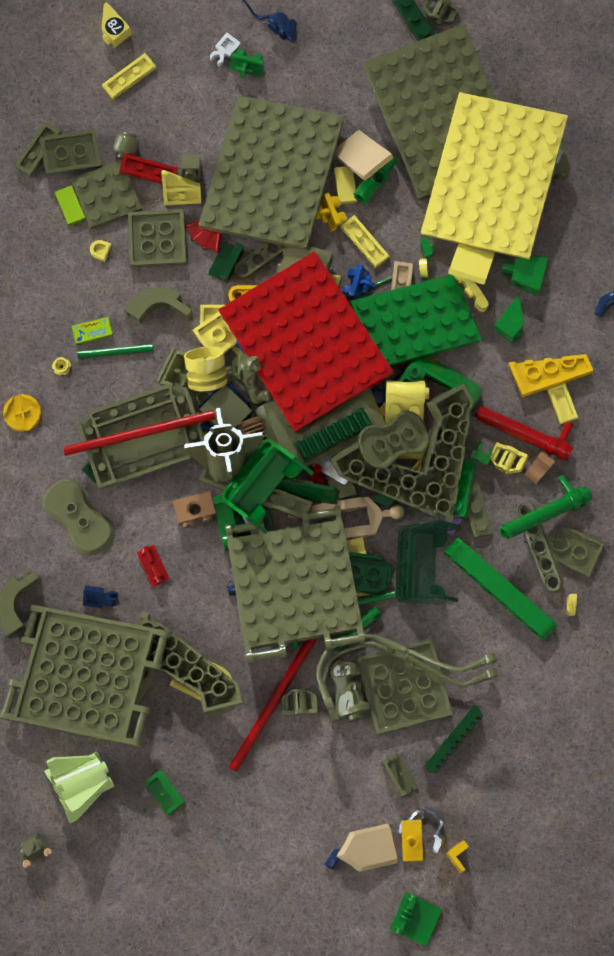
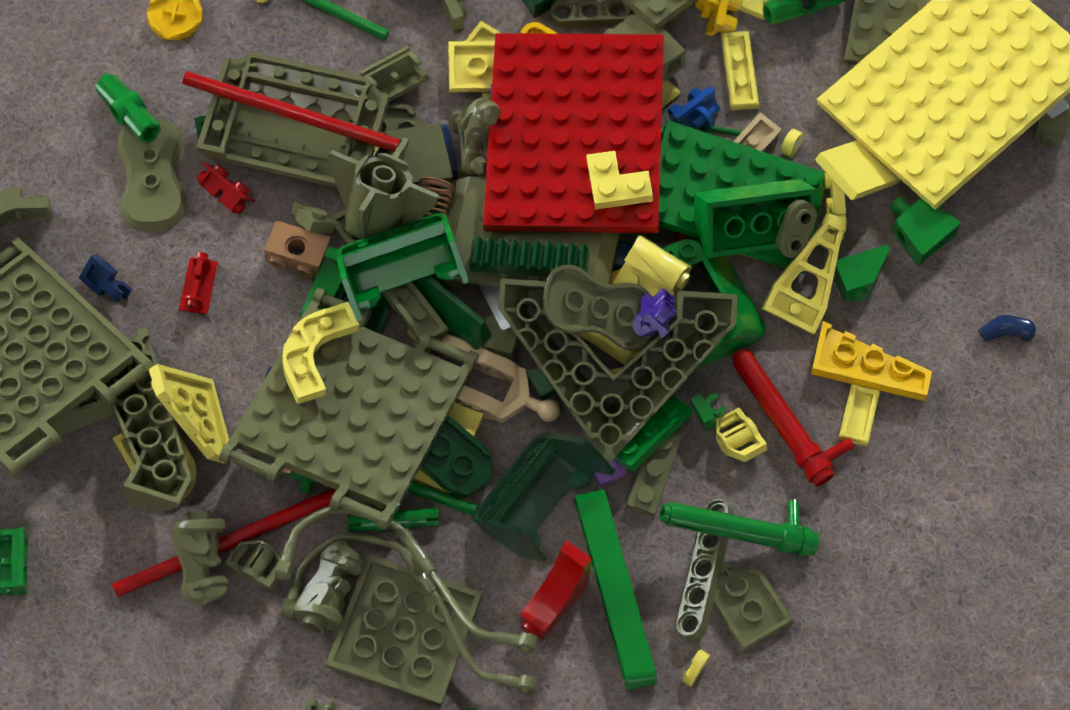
camera: 30 degrees right, 10 degrees down
(39, 488) = (127, 108): none -> green piece
(119, 496) = (234, 193): none -> red hinge
(192, 486) = (312, 219): none -> olive plate
(205, 368) = (431, 85): light yellow wheel -> none
(205, 639) = (194, 406): none -> light yellow plate
(245, 569) = (304, 342): none -> light yellow plate
(263, 717) = (197, 550): none -> olive animal
(318, 477) = (477, 301): red arm -> none
(353, 365) = (616, 190): none -> light yellow plate
(425, 422) = (654, 314): none -> dark purple hips
(427, 248) = (812, 122): green plate -> none
(438, 328) = (746, 216): none -> green slope
(465, 321) = (794, 229): none -> olive plate
(473, 614) = (558, 591): none -> red arch
(491, 365) = (794, 307): none -> light yellow plate
(539, 468) = (772, 472): medium nougat leg -> none

